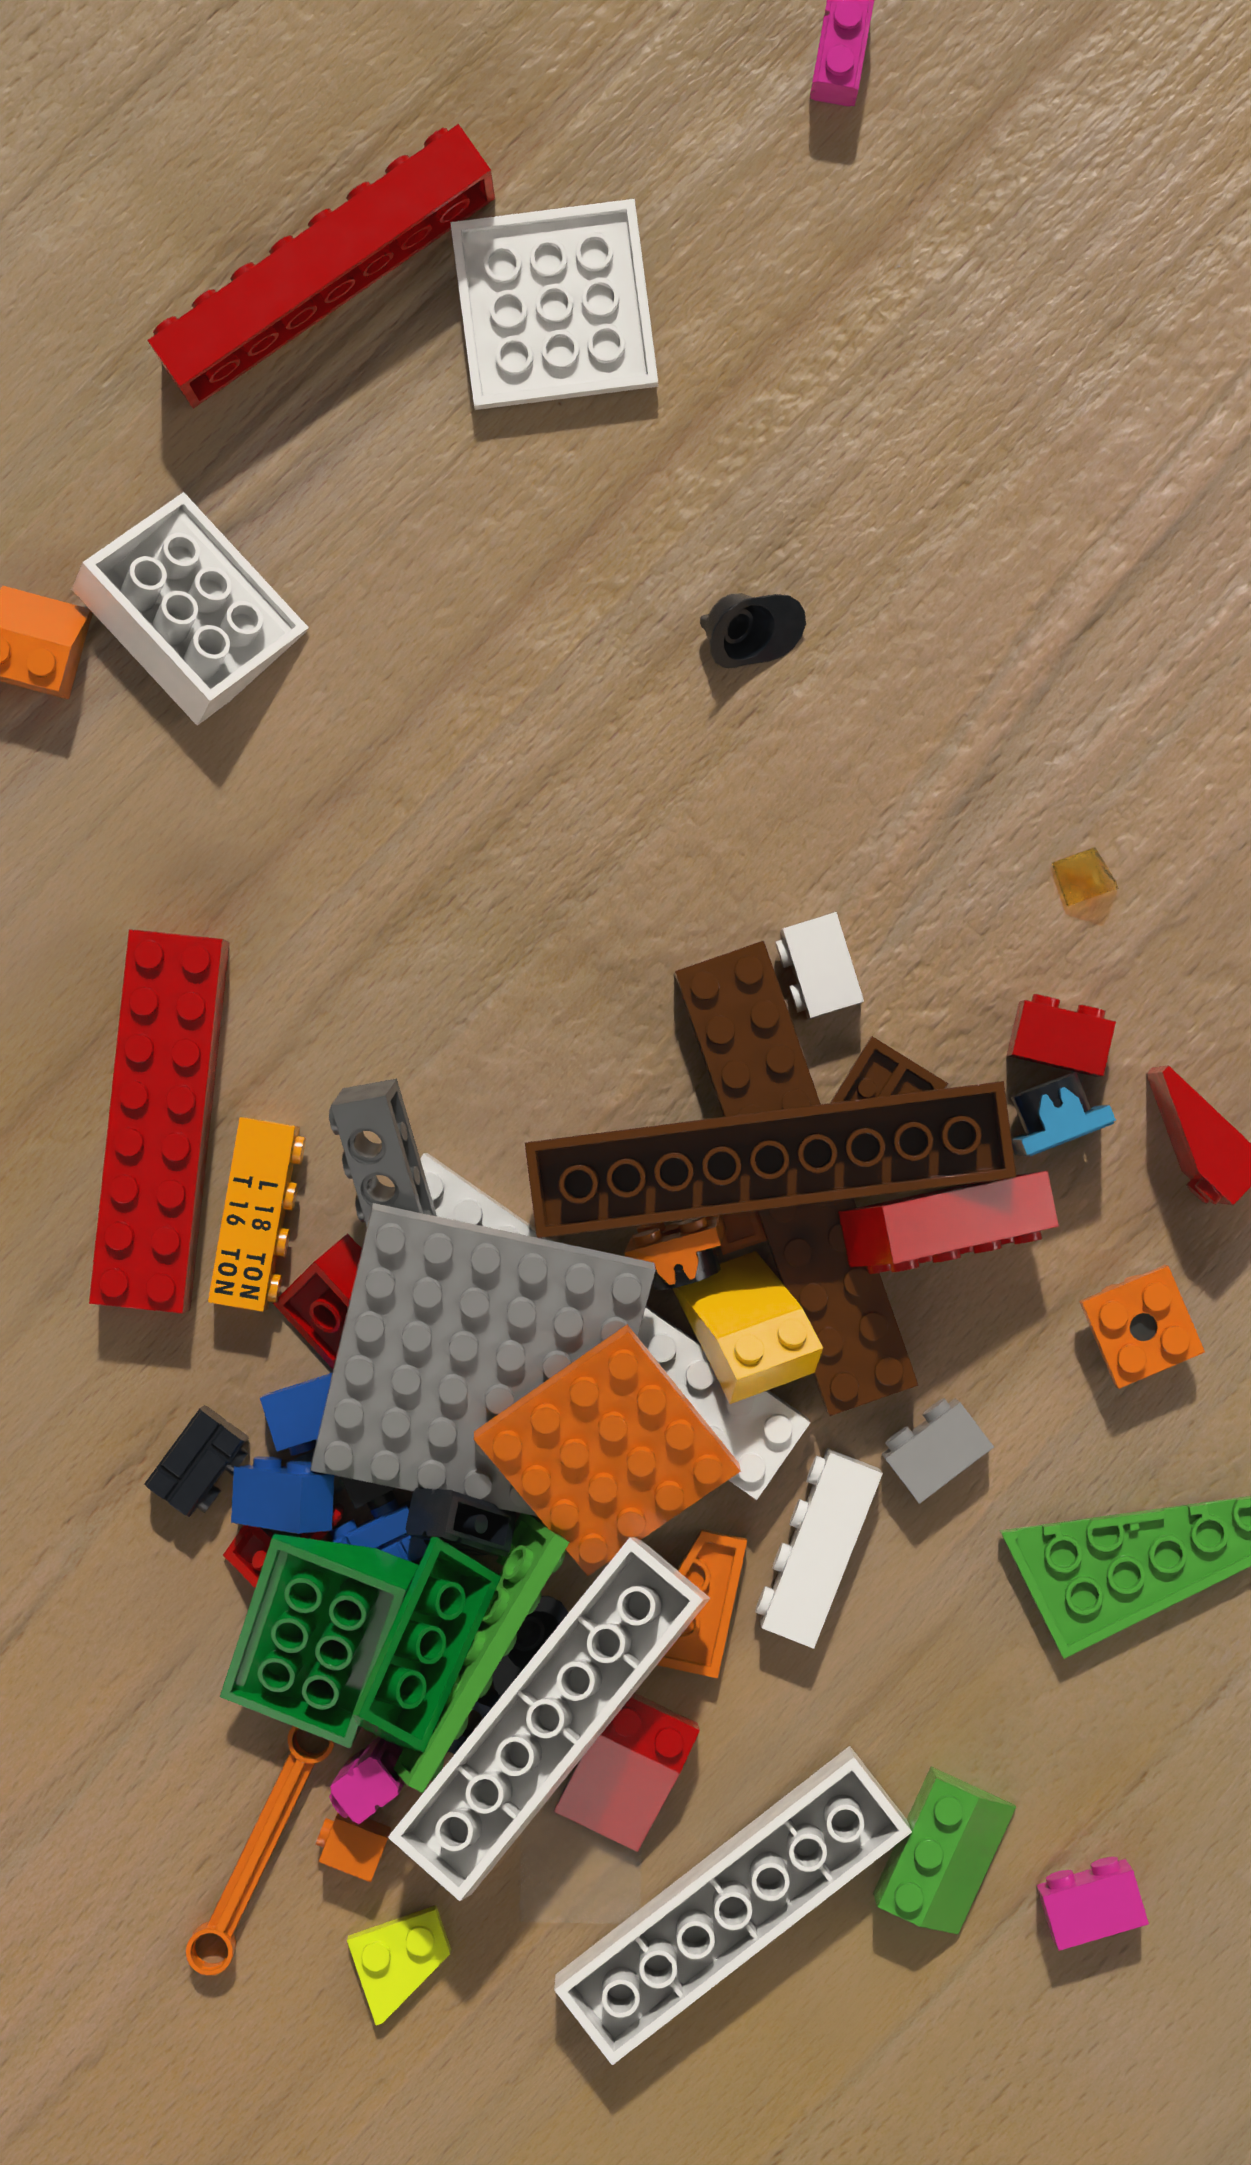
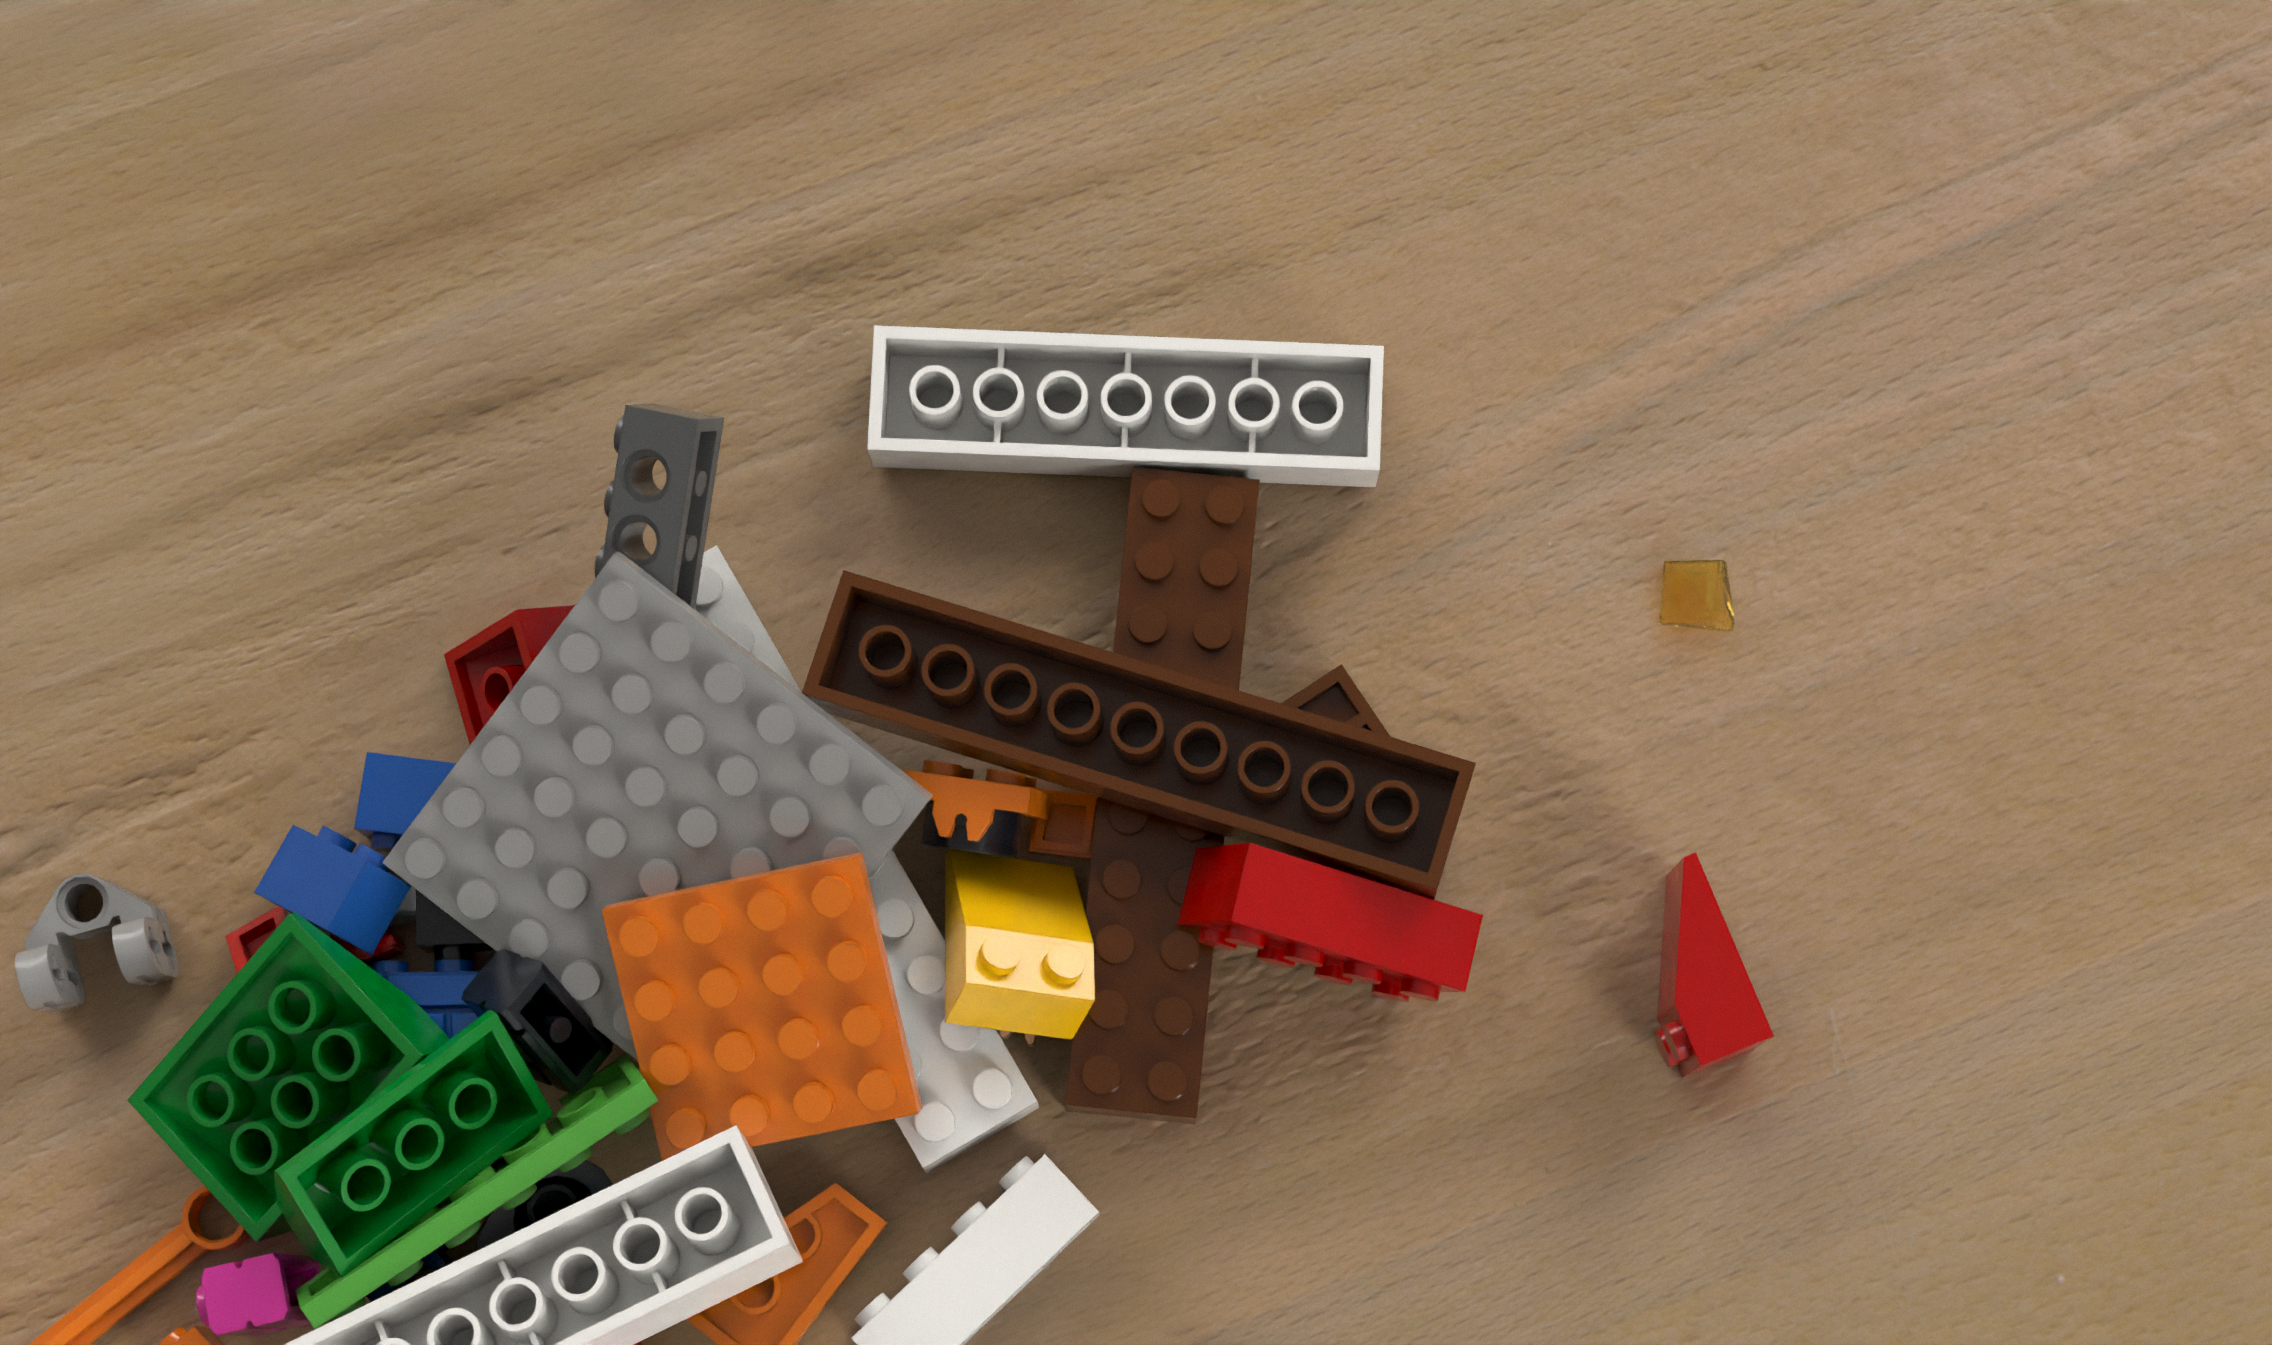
camera: 25 degrees right, 10 degrees down
(159, 1121) = (416, 368): red brick -> none
(177, 1592) = (140, 938): none -> light grey piece
(198, 1461) = (252, 802): black brick -> none
(255, 1214) = (477, 532): light orange brick -> none
(649, 928) = (1125, 404): none -> white brick
(753, 628) = (1424, 114): black piece -> none
(820, 966) = (1317, 551): white brick -> none
(936, 1448) = (1183, 1217): light grey brick -> none
(1056, 1115) = (1527, 862): dark azure piece -> none
(1061, 1036) = (1578, 773): red brick -> none
(1142, 1326) = (1517, 1180): orange piece -> none

